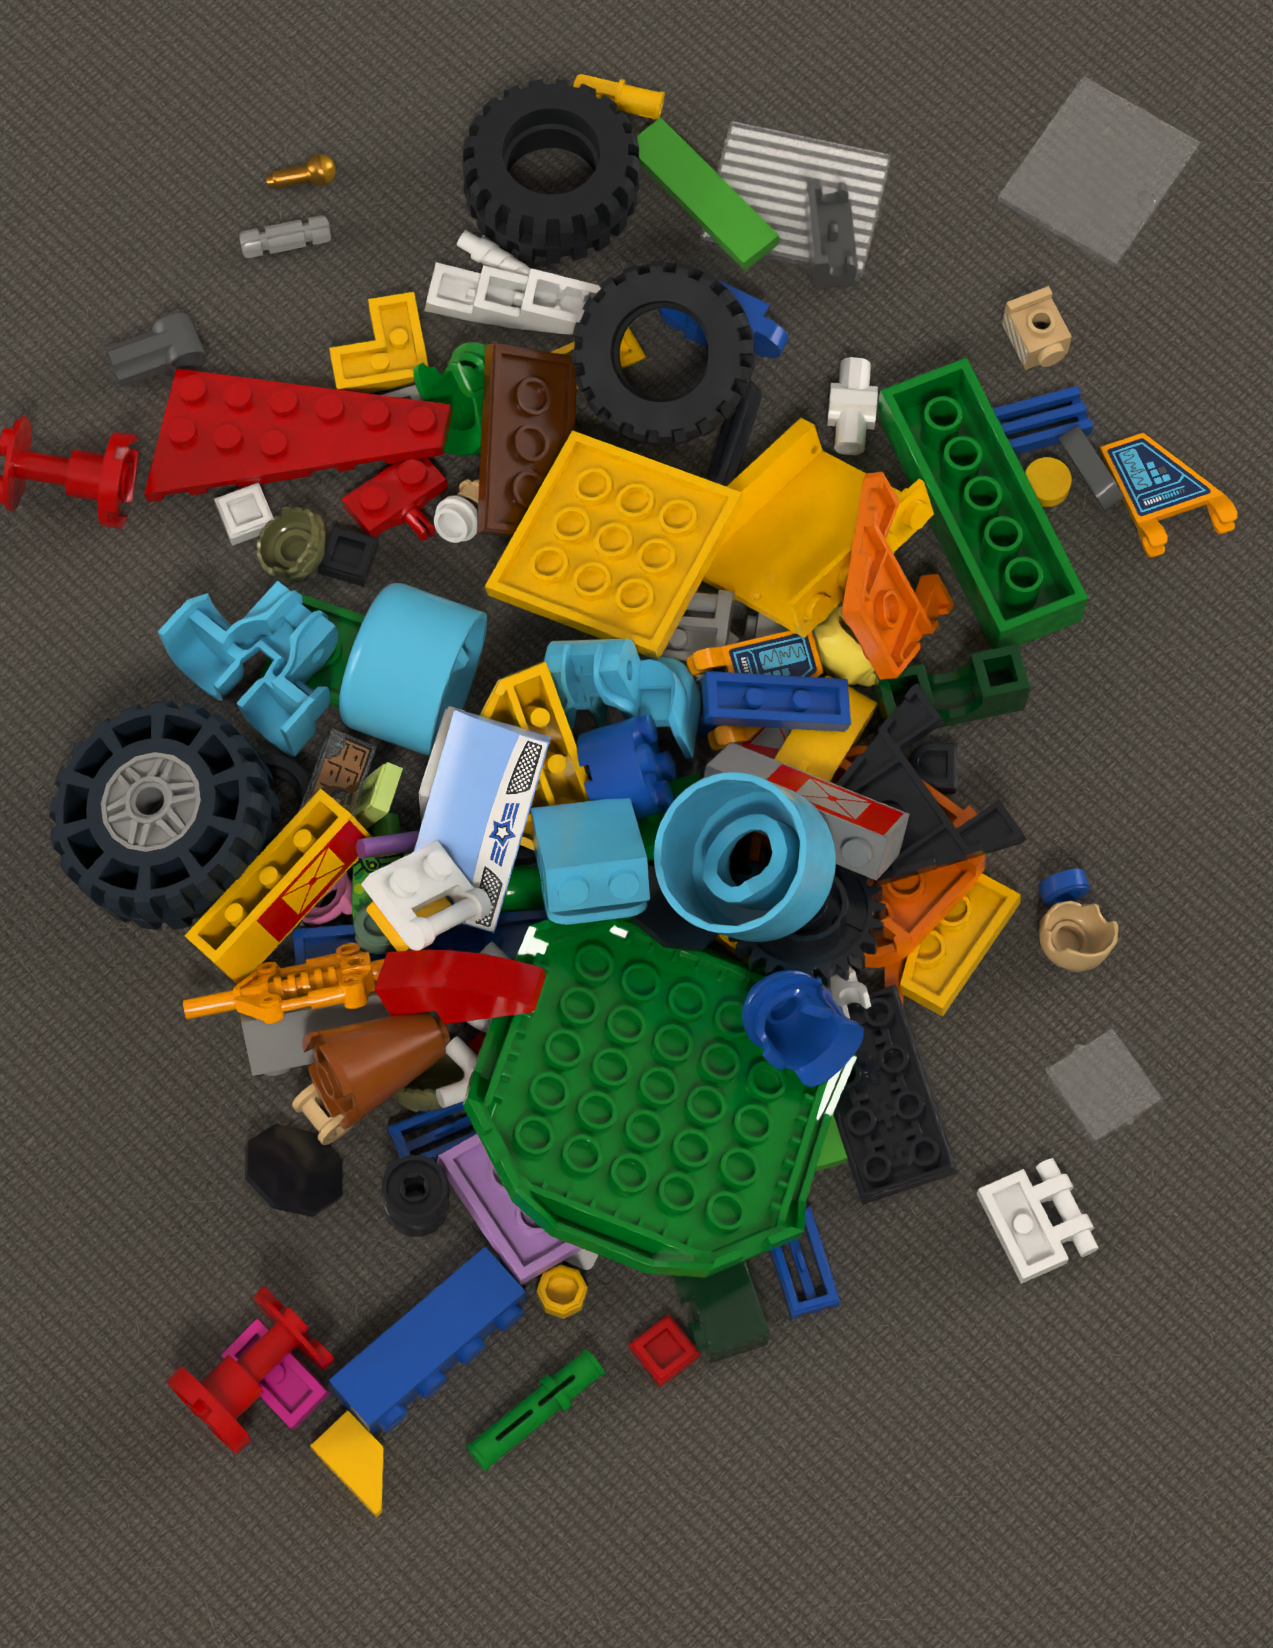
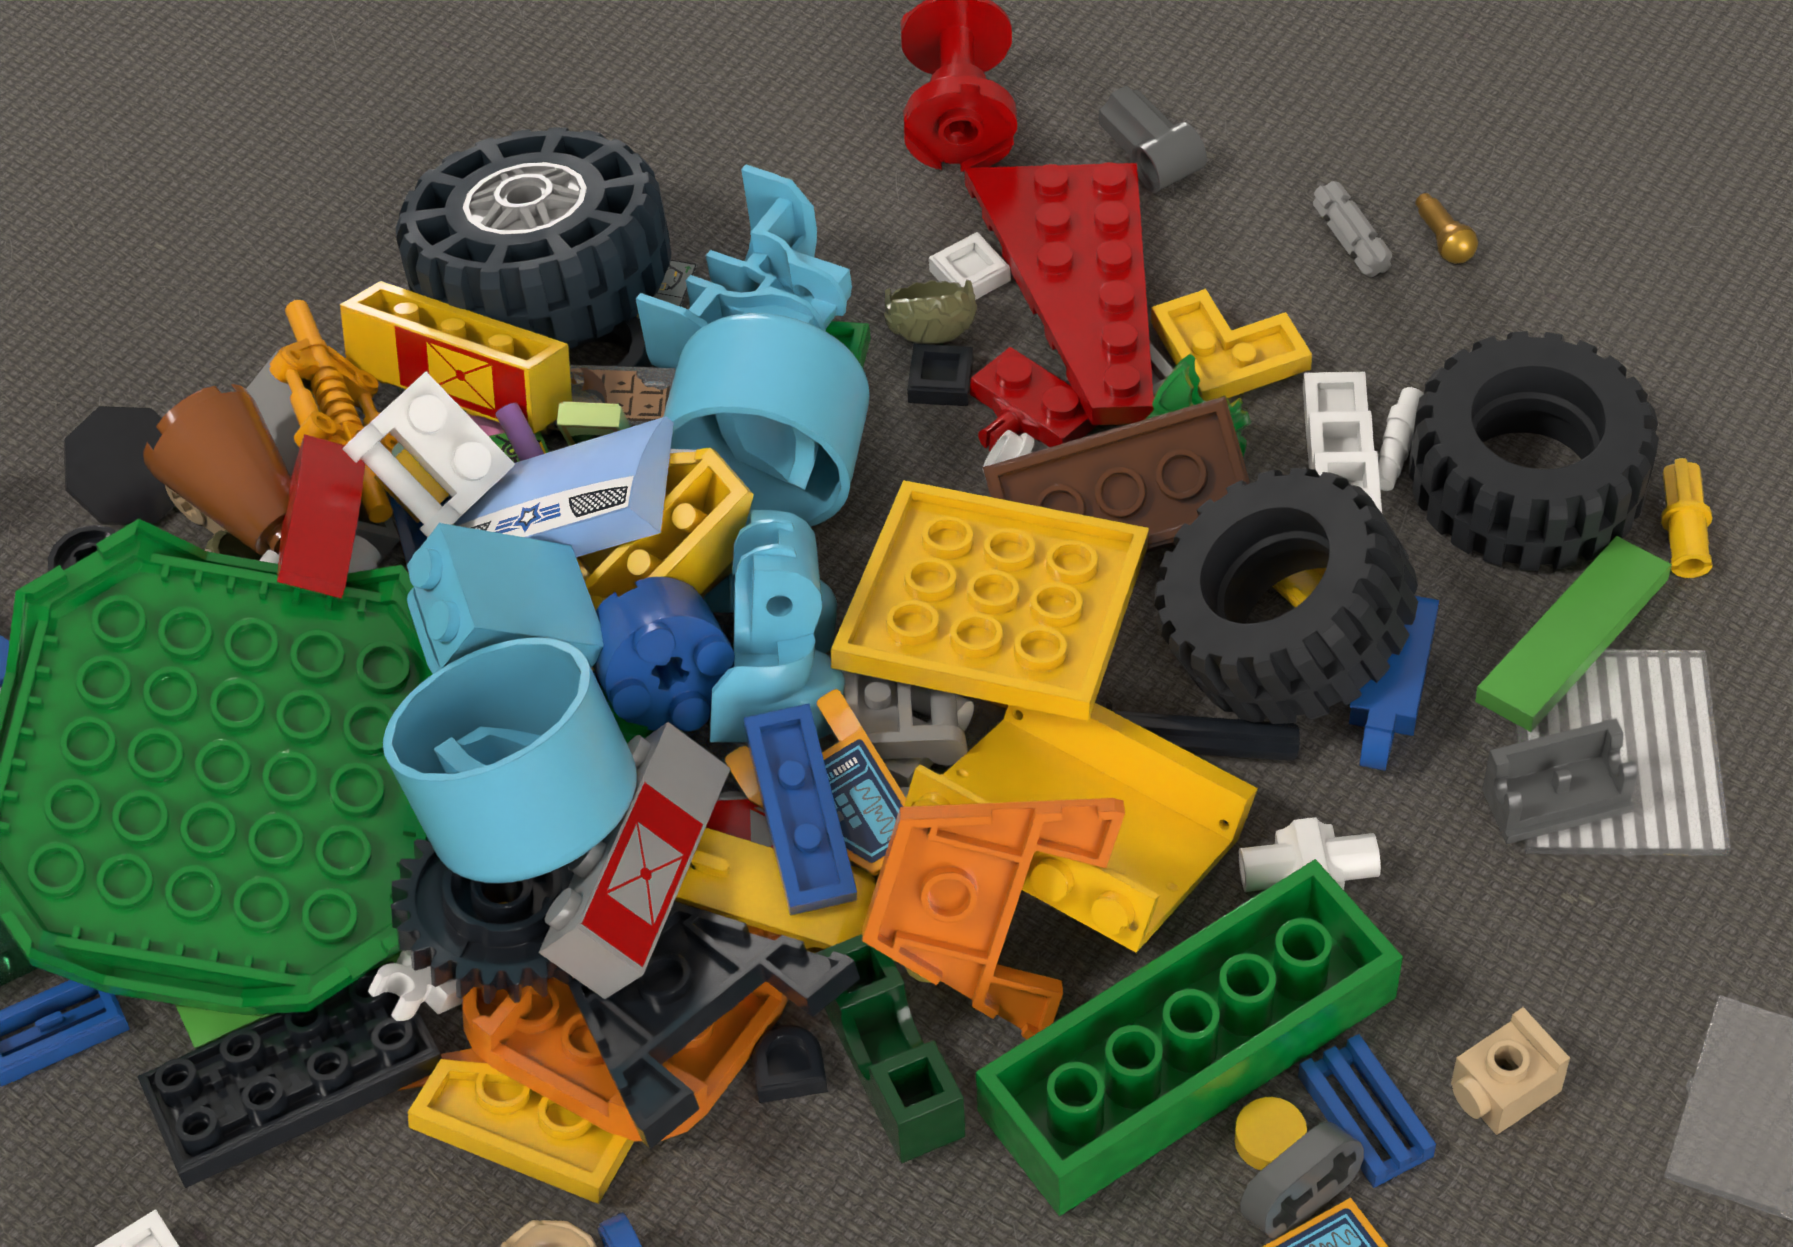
camera: 85 degrees right, 15 degrees down
(800, 1026) = (318, 903): blue helmet -> none

